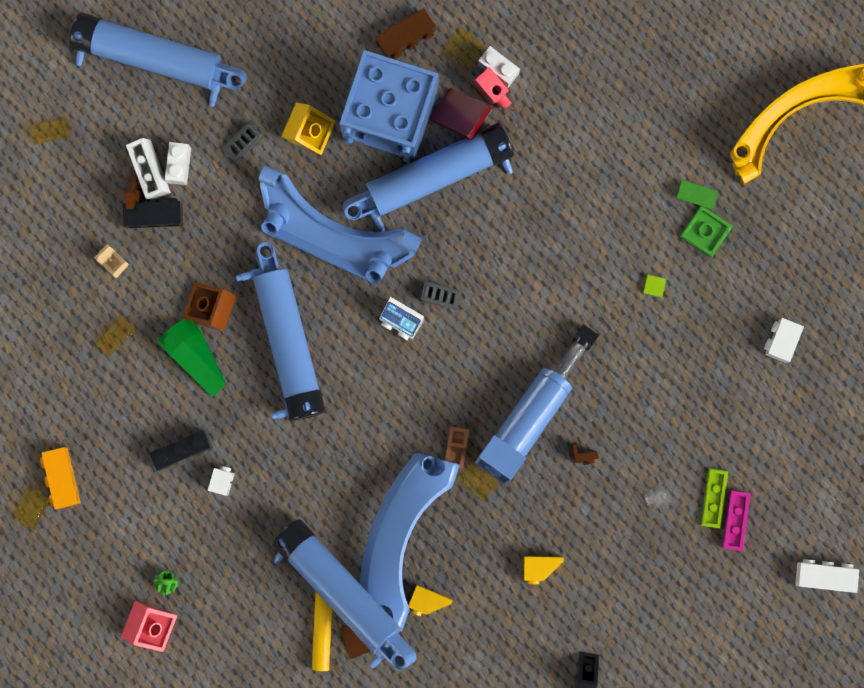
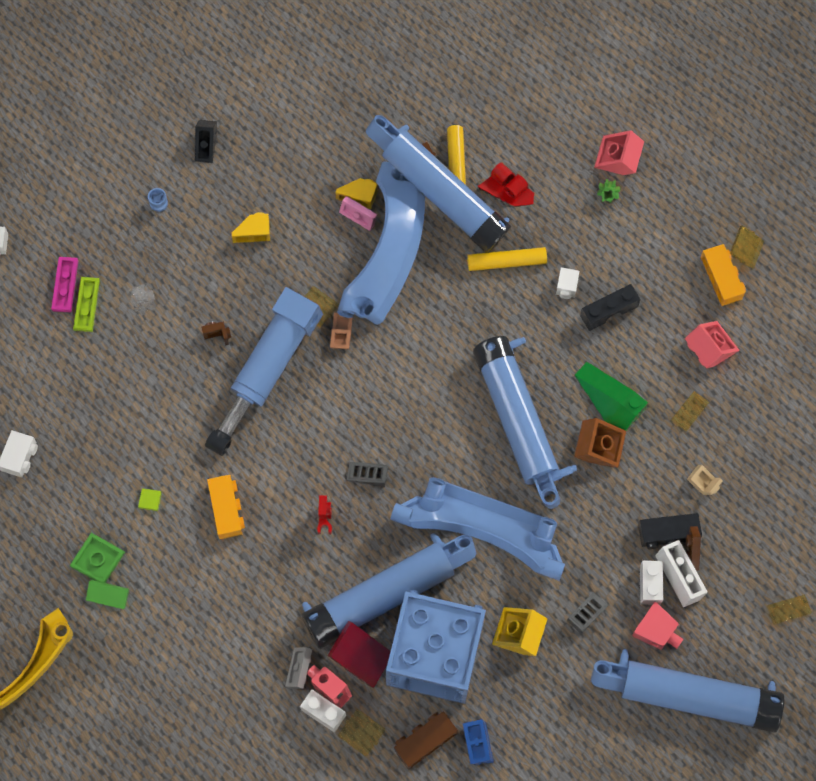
camera: 175 degrees right, 15 degrees down
(83, 403) = (711, 344): none -> coral slope
(178, 120) = (658, 628): none -> coral torso
(267, 591) = (514, 192): none -> red panel
(280, 513) = (507, 259): none -> yellow piece
(357, 27) = (478, 742): none -> blue hinge
(401, 319) = (405, 445): slope -> none
(430, 577) = (358, 213): none -> bright pink plate
(485, 254) = (324, 514): none -> red plate
(519, 109) = (298, 668): none -> light grey plate
(581, 271) = (226, 506): none -> light orange brick
(641, 607) = (157, 199): none -> medium blue wheel

